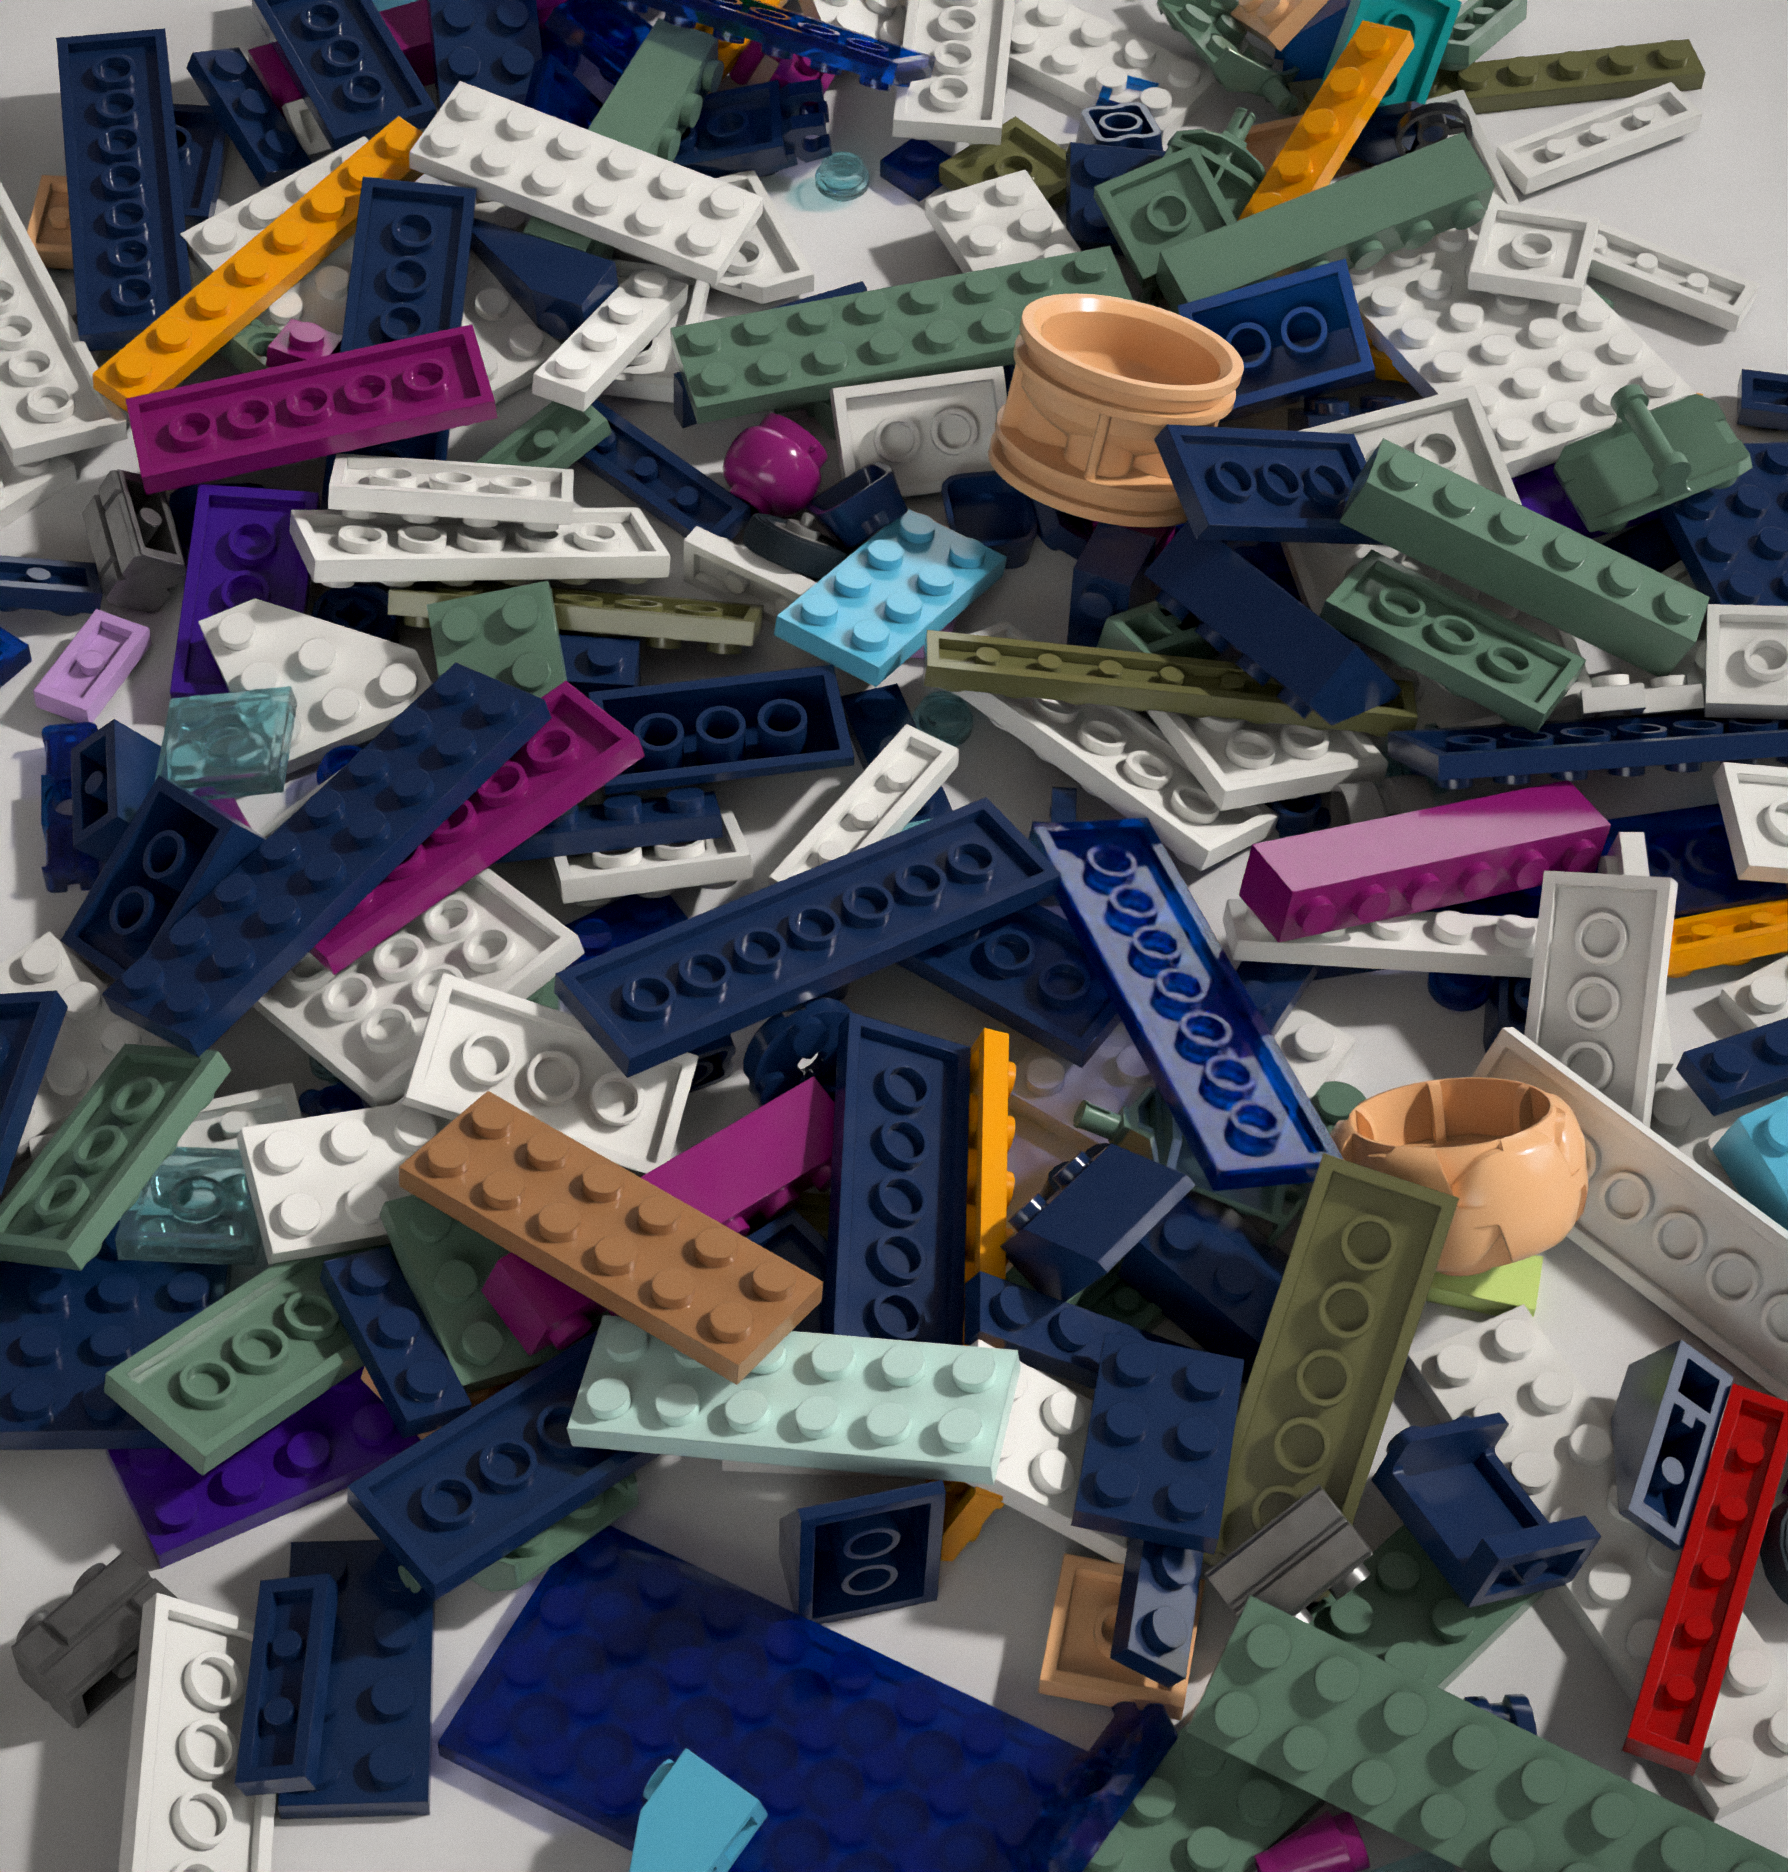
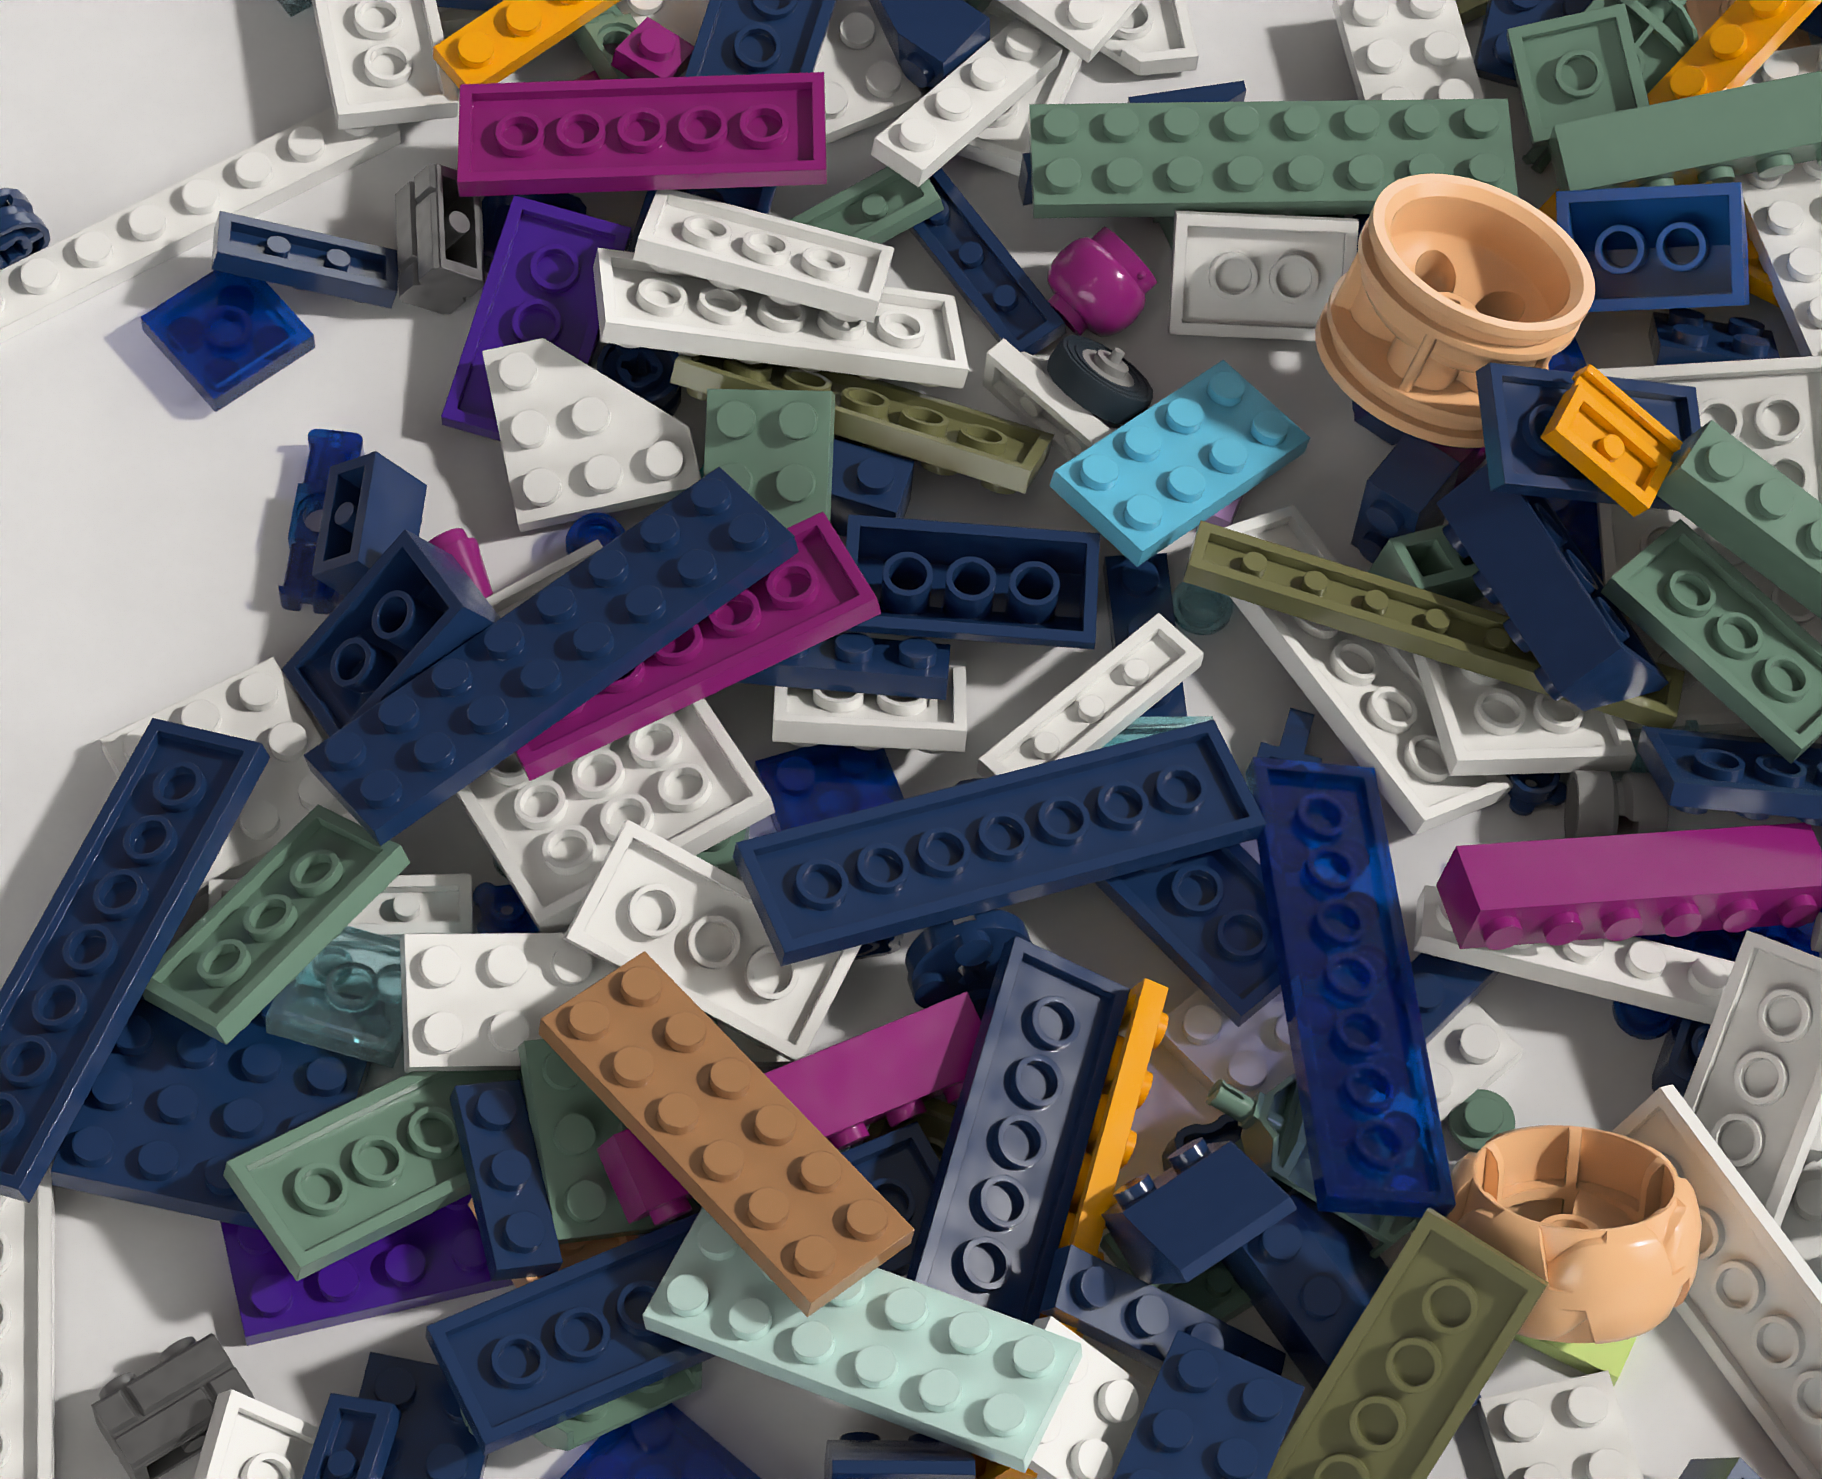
camera: 10 degrees right, 10 degrees up
(92, 667) = (372, 370): lavender plate -> none
(229, 742) = (482, 496): clear light blue plate -> none
(859, 504) = (1174, 344): dark blue piece -> none
(991, 512) = (1301, 385): dark blue piece -> none
(1295, 476) = (1611, 440): none -> light orange plate

